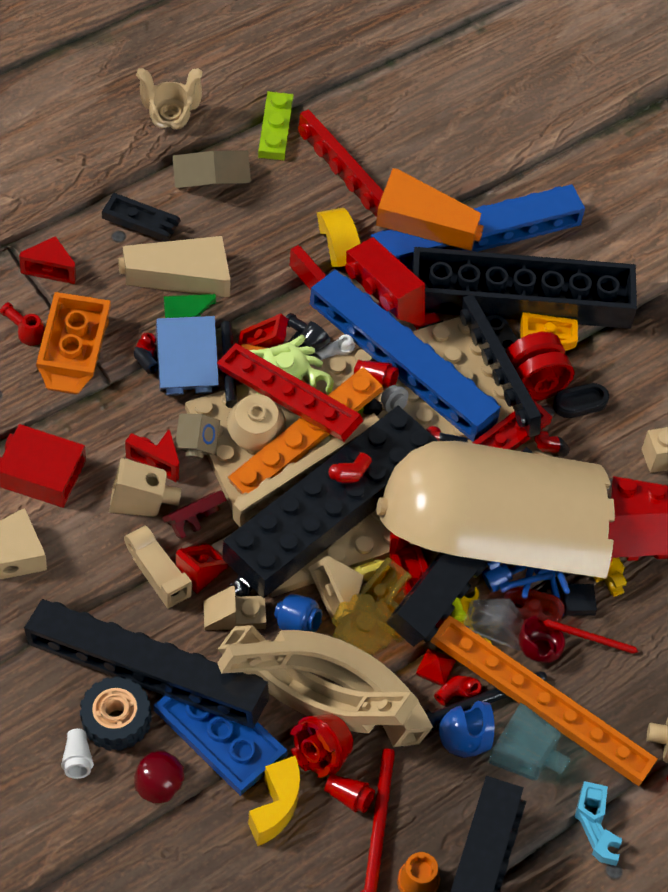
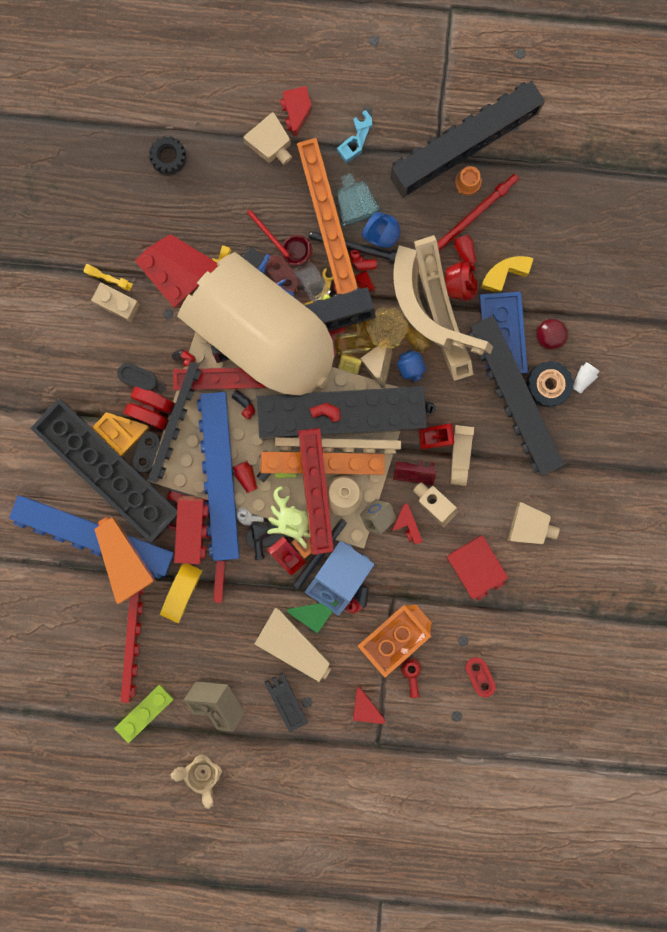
camera: 135 degrees left, 30 degrees up
(226, 611) = (442, 397): tan slope -> none
(393, 397) = (250, 451): light grey plate -> none

